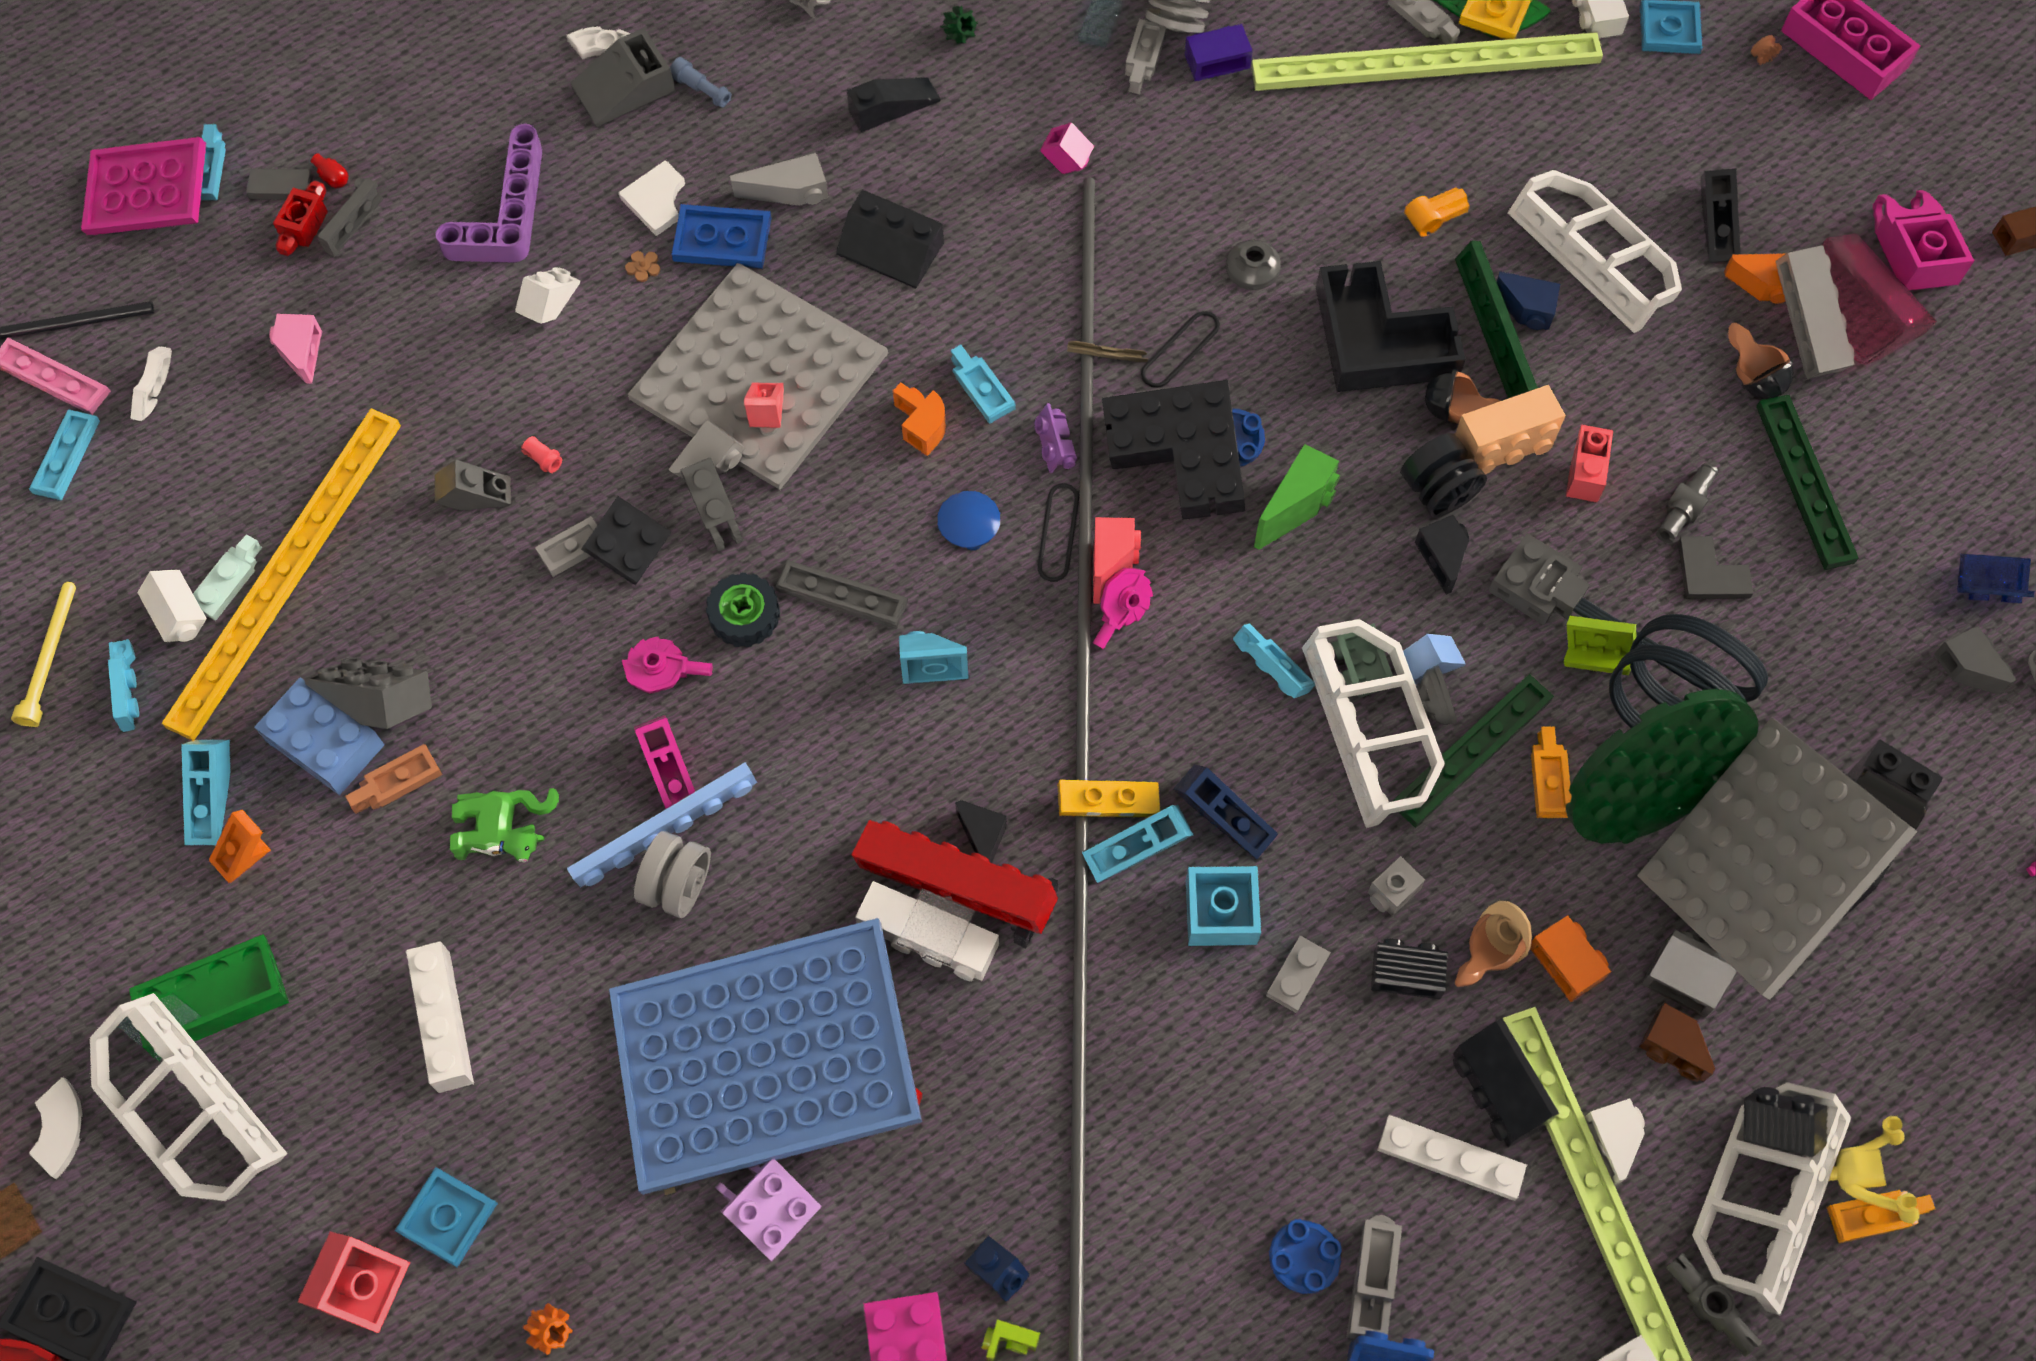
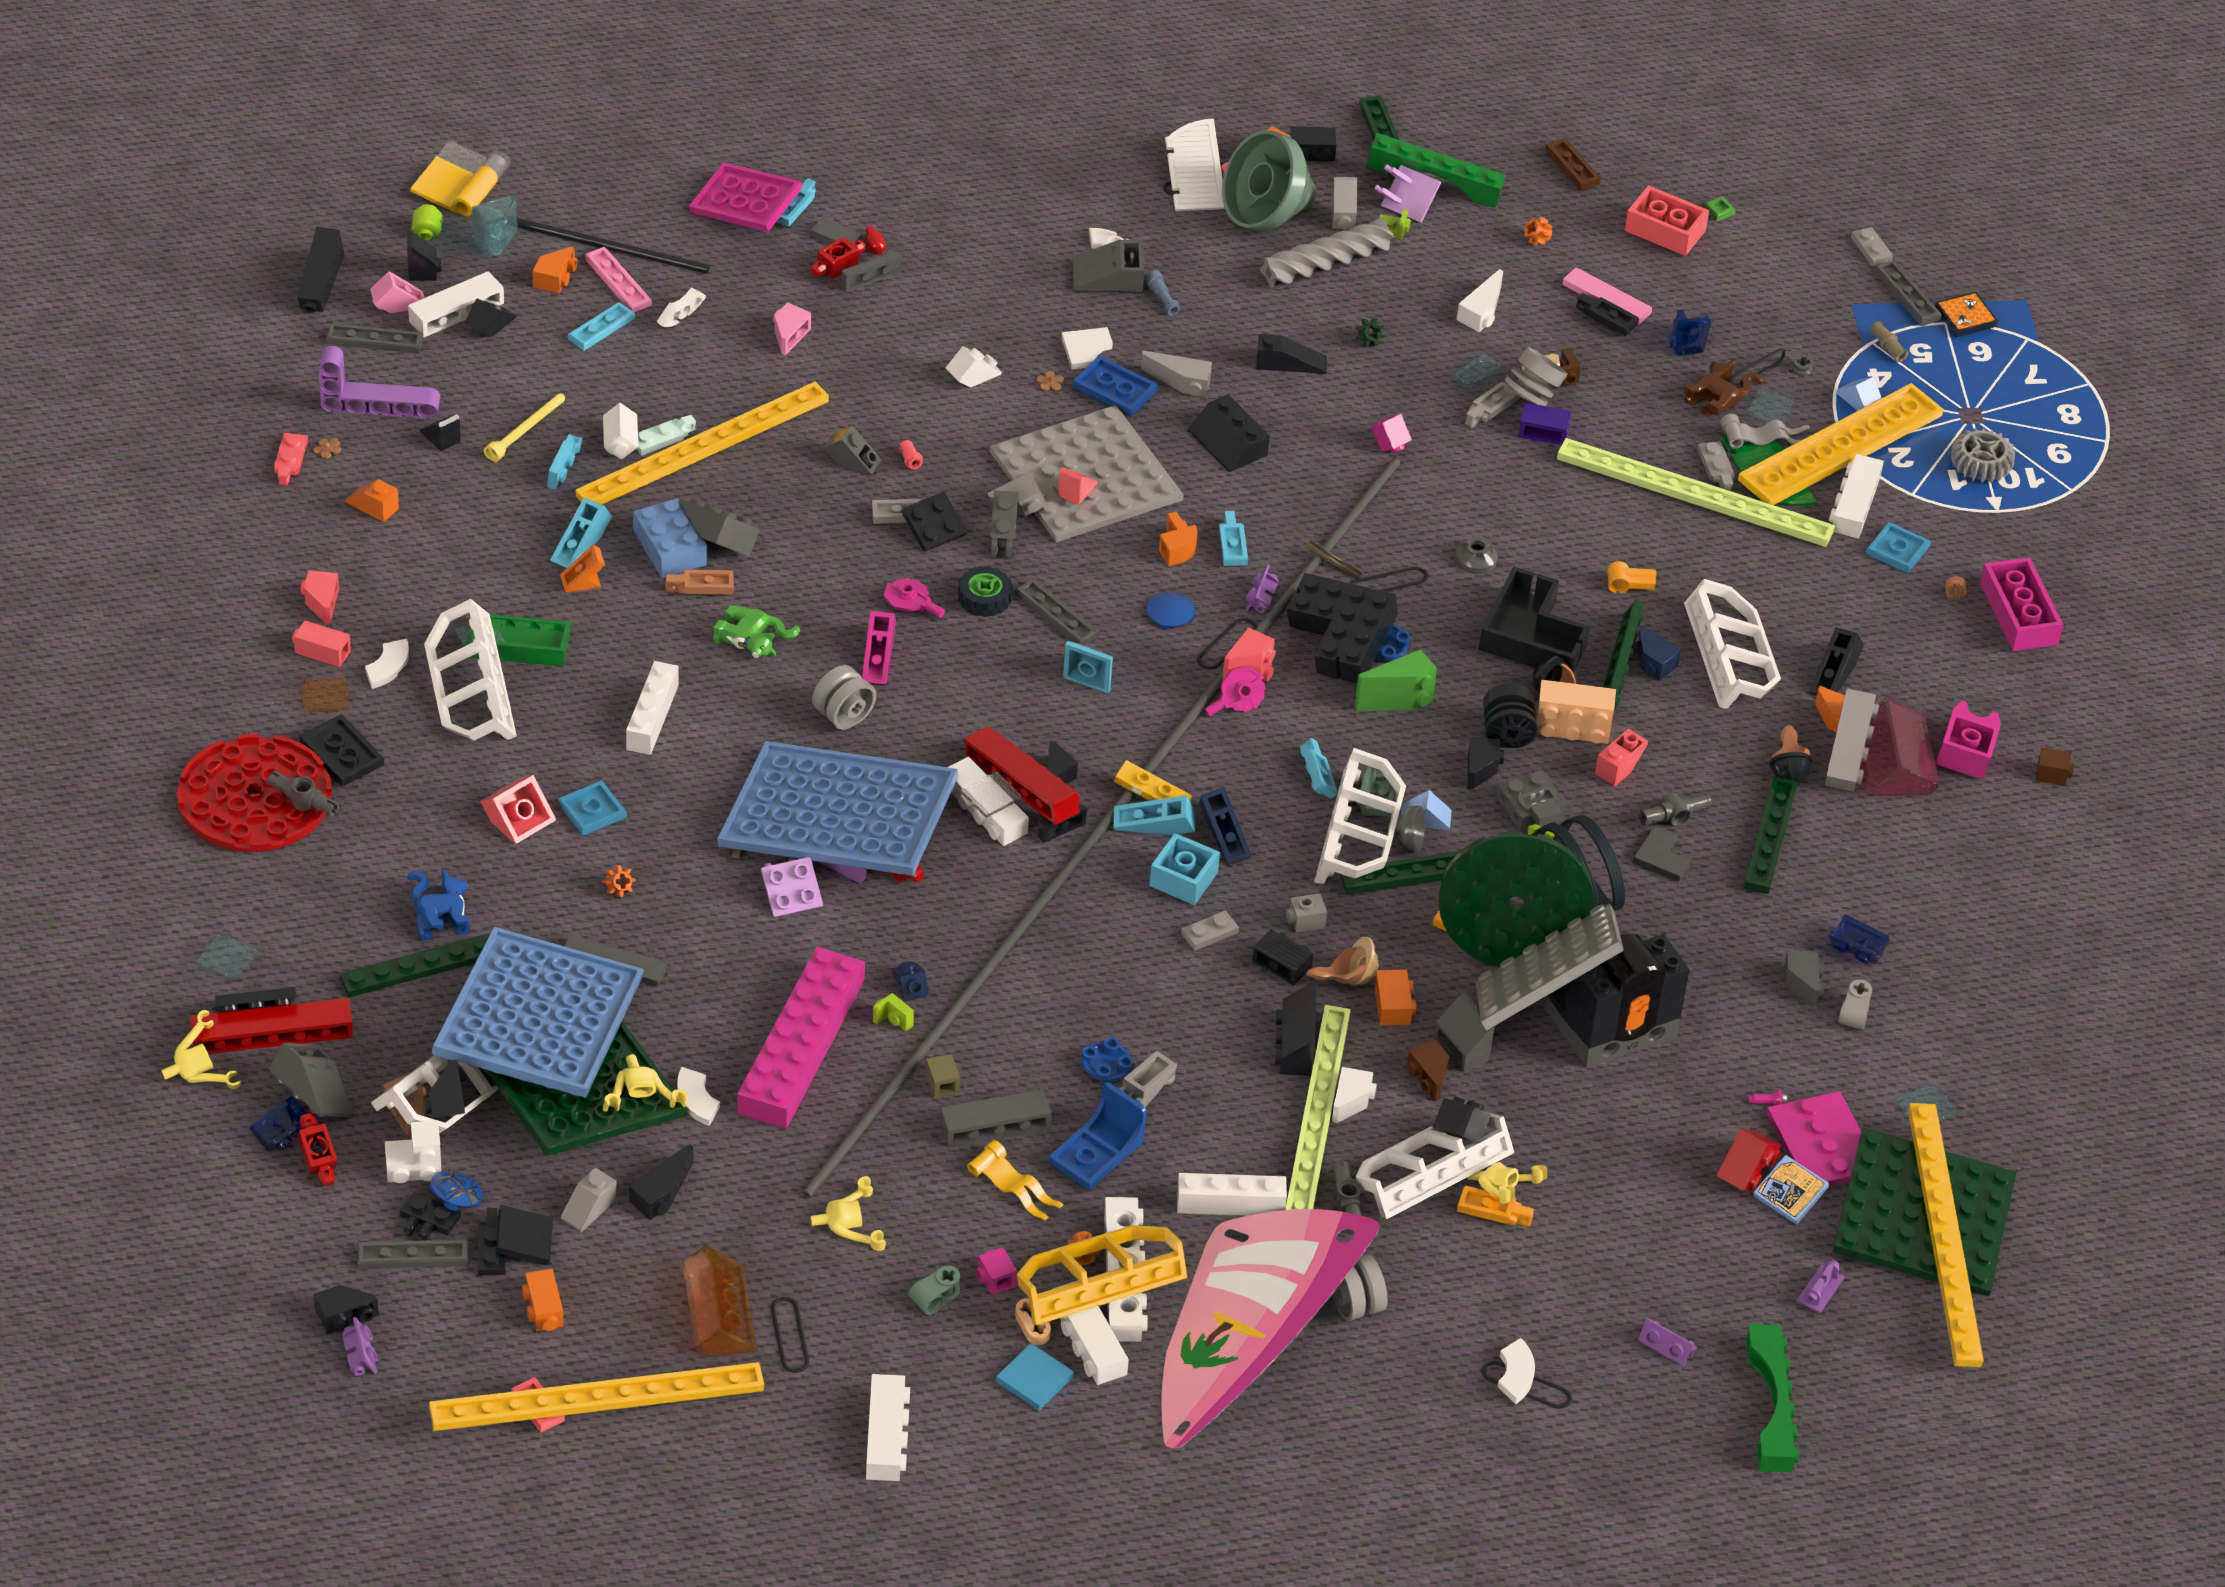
camera: 25 degrees right, 20 degrees down
(494, 240) = (985, 313): medium lavender beam -> none
(673, 819) = (874, 672): light blue plate -> none
(1452, 1157) = (1238, 1060): white plate -> none

